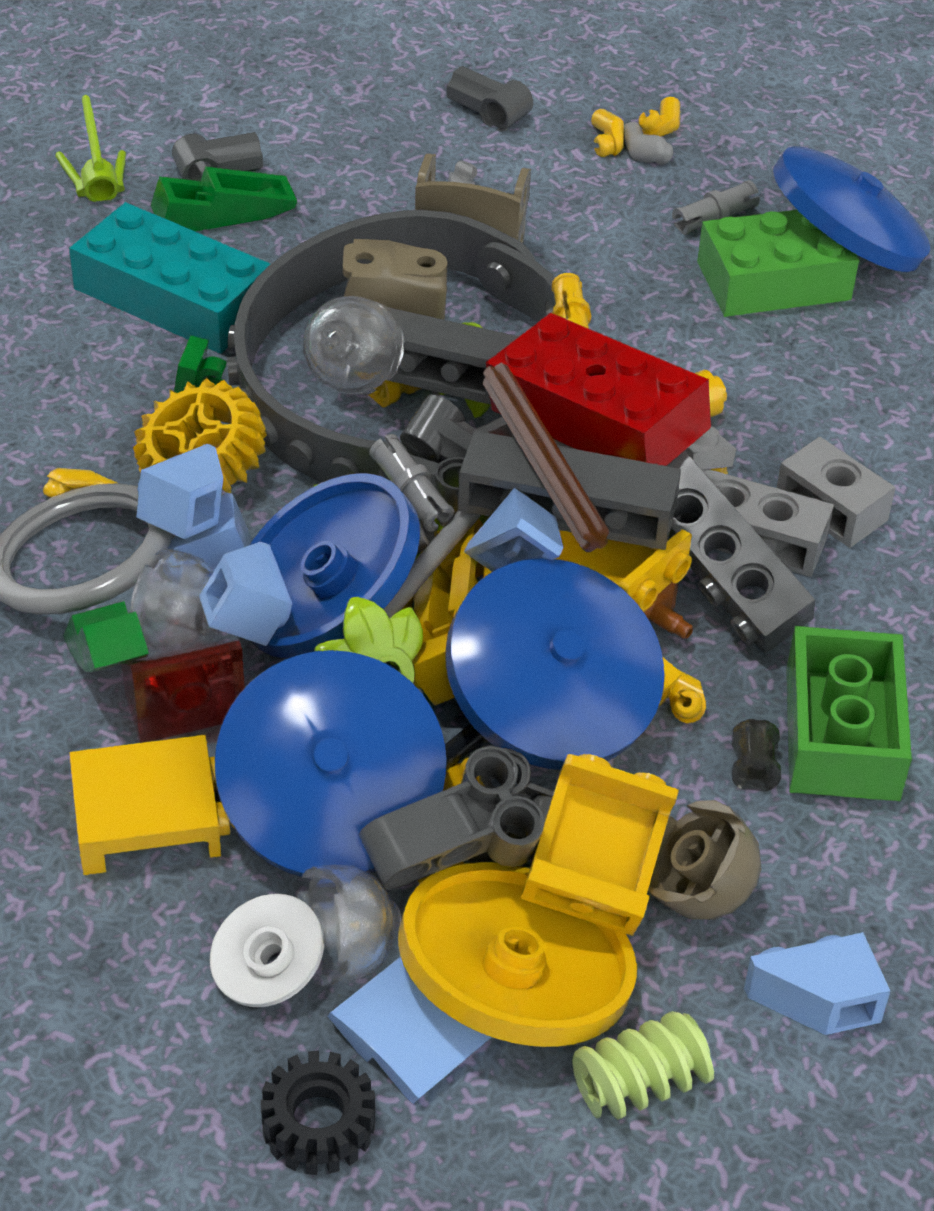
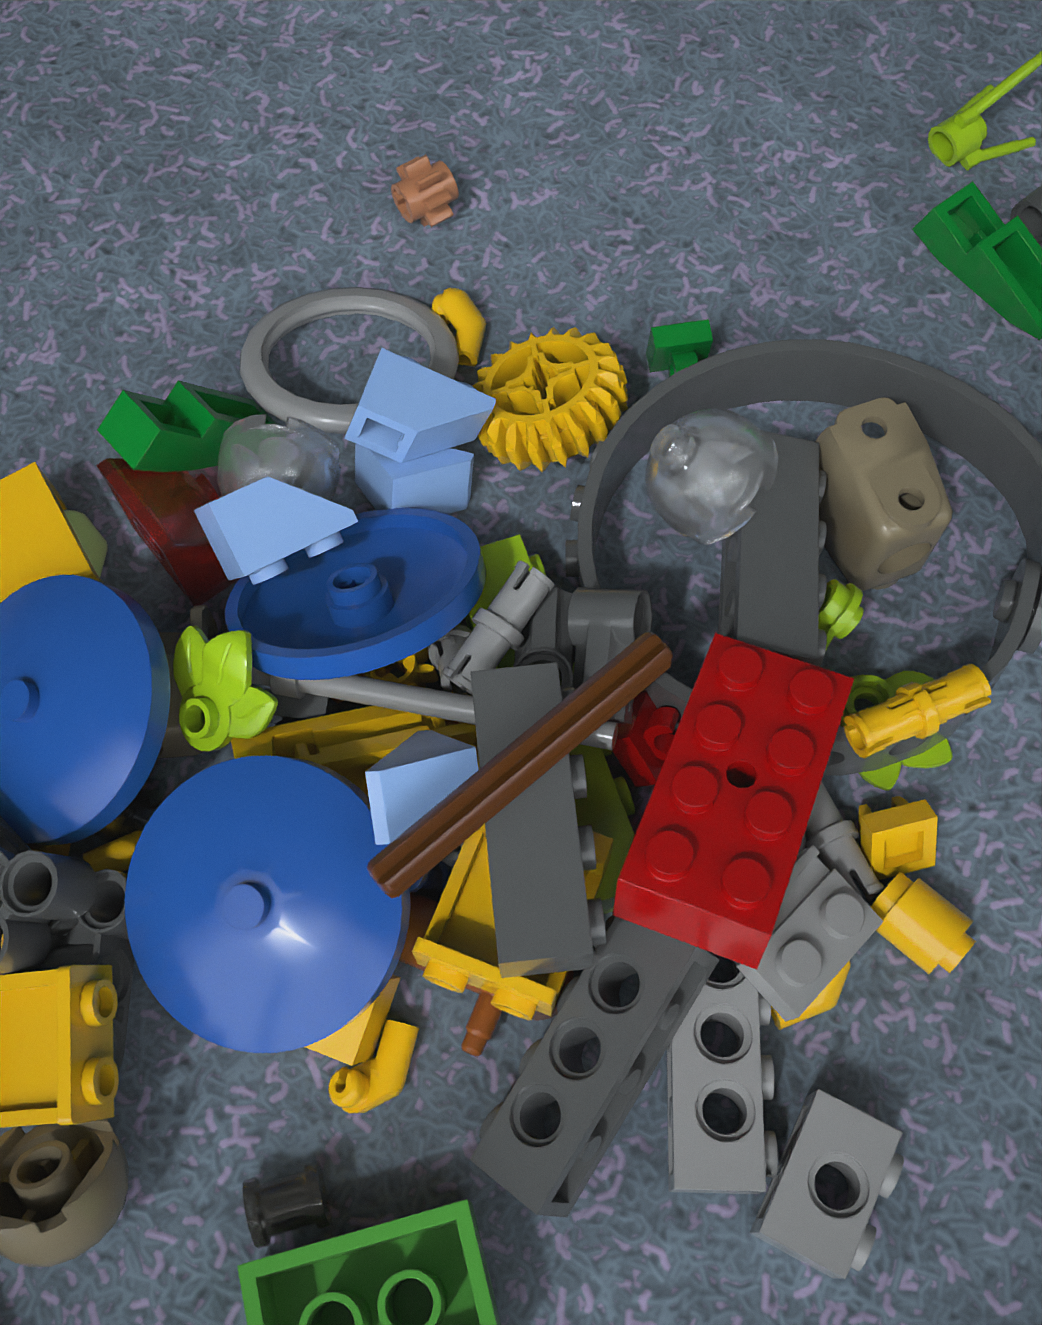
camera: 75 degrees right, 20 degrees up
(164, 274) = (824, 250): teal brick -> none

